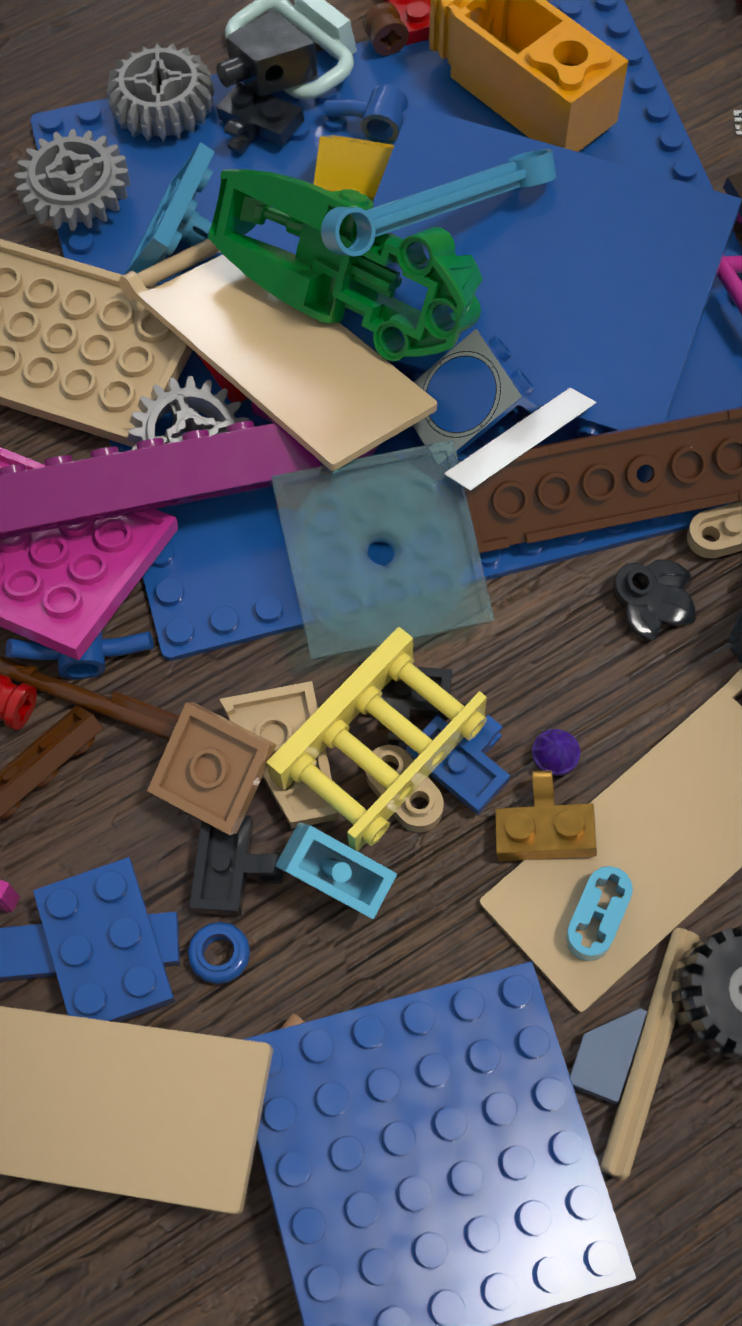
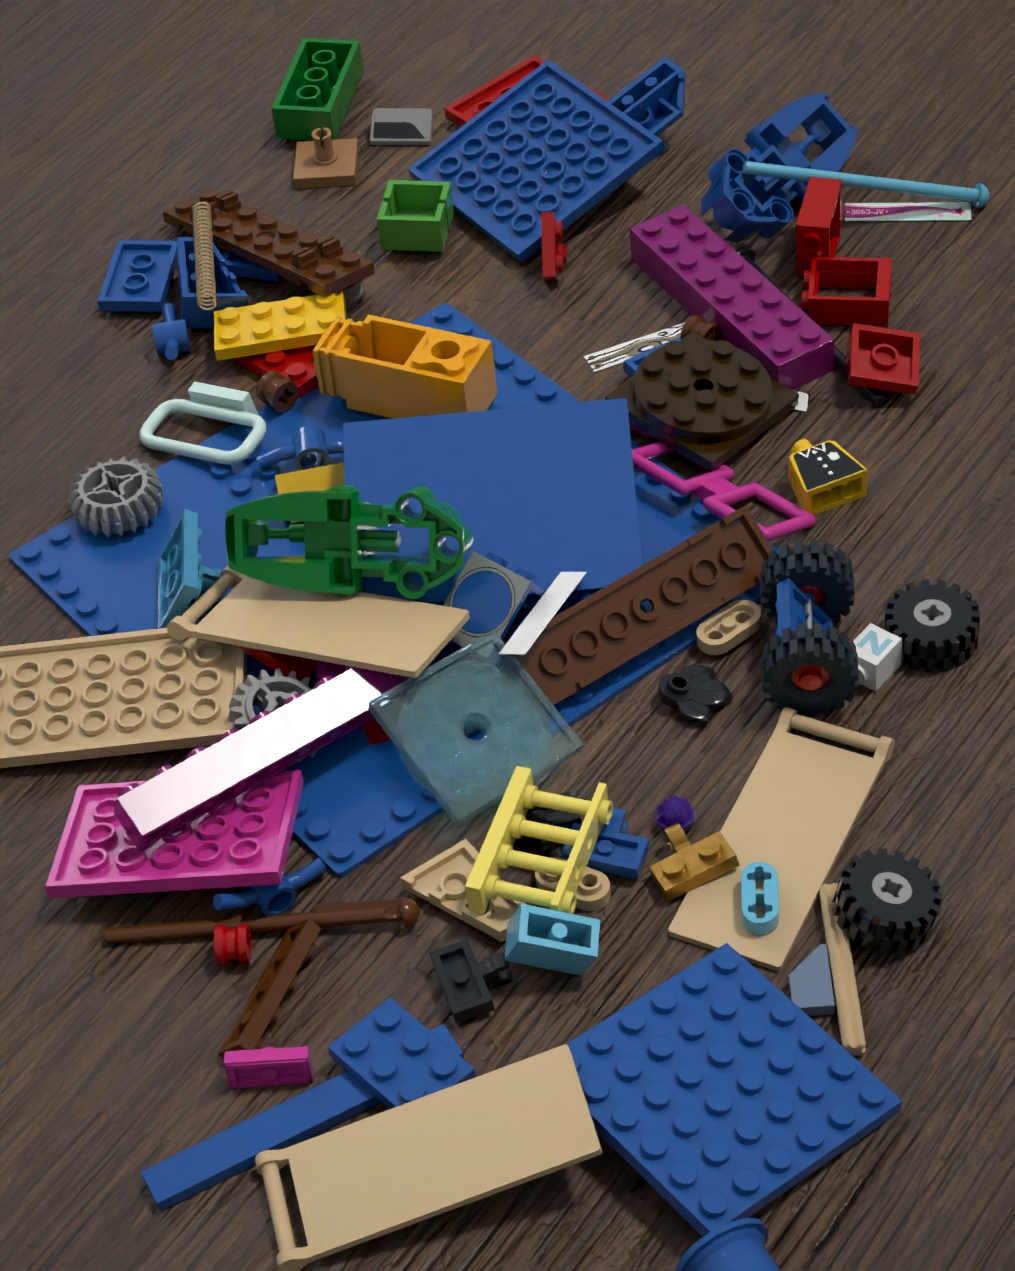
camera: 20 degrees left, 20 degrees down
(72, 179) = (80, 580): light grey gear -> none
(206, 936) = (490, 1025): blue piece -> none
(211, 768) = (423, 912): medium nougat tile -> none
(256, 115) = (206, 485): black plate -> none
(268, 56) = (198, 438): black torso -> none
(520, 172) = (365, 499): dark azure piece -> none

